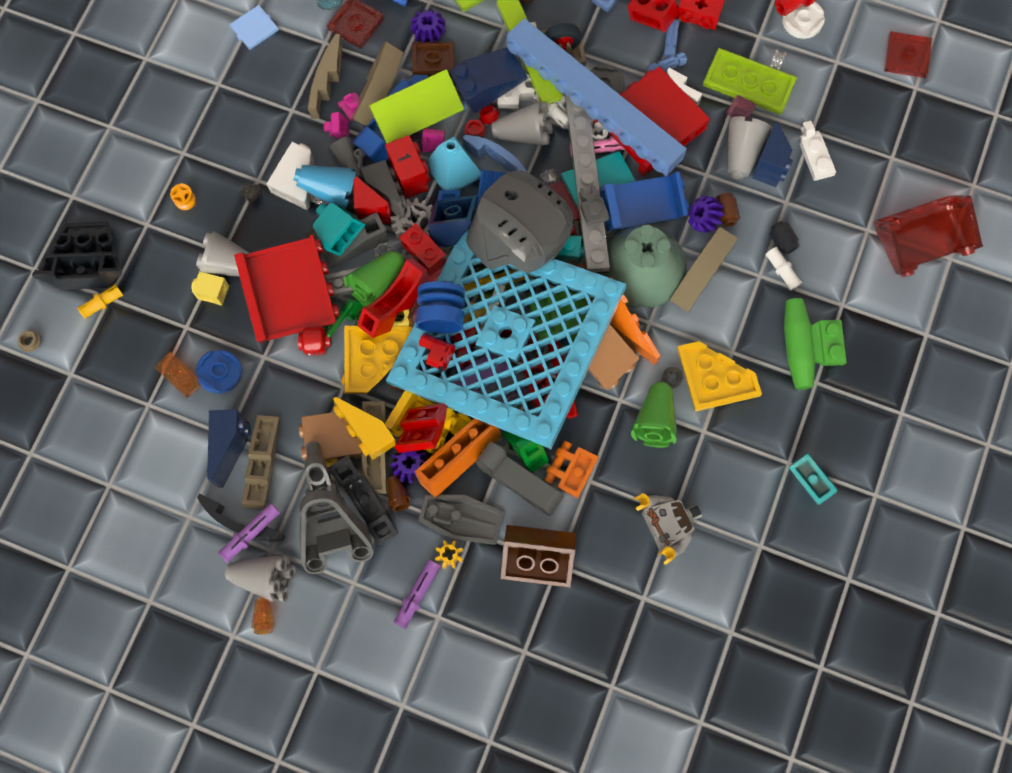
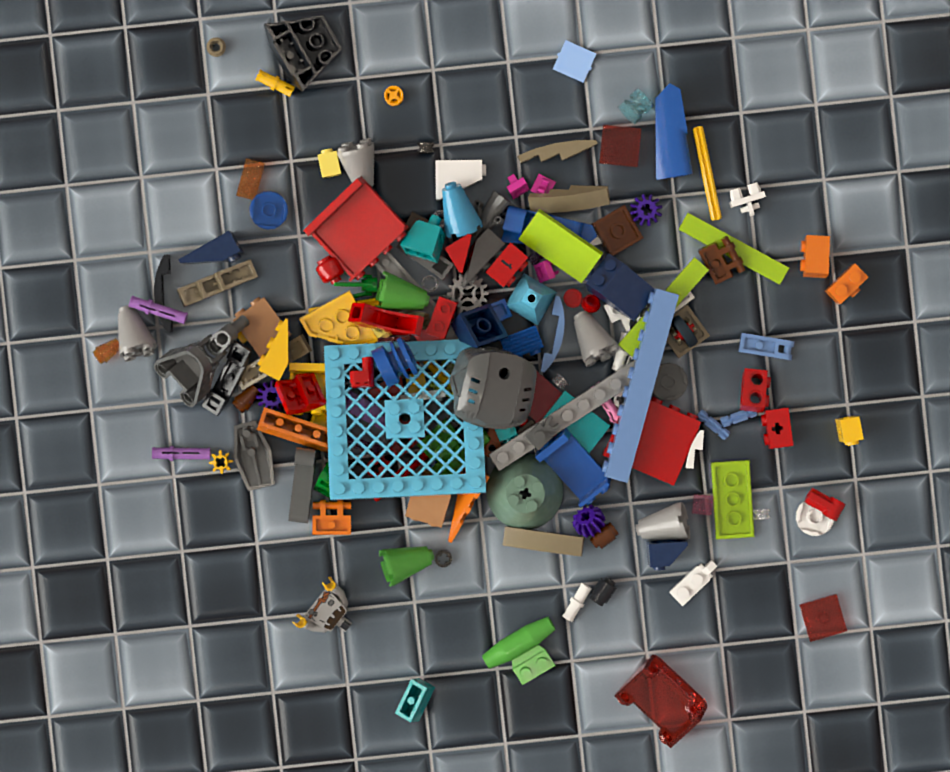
camera: 60 degrees right, 15 degrees up
(538, 556) = (254, 527): reddish brown slope -> none
(715, 378) = (459, 591): yellow plate -> none

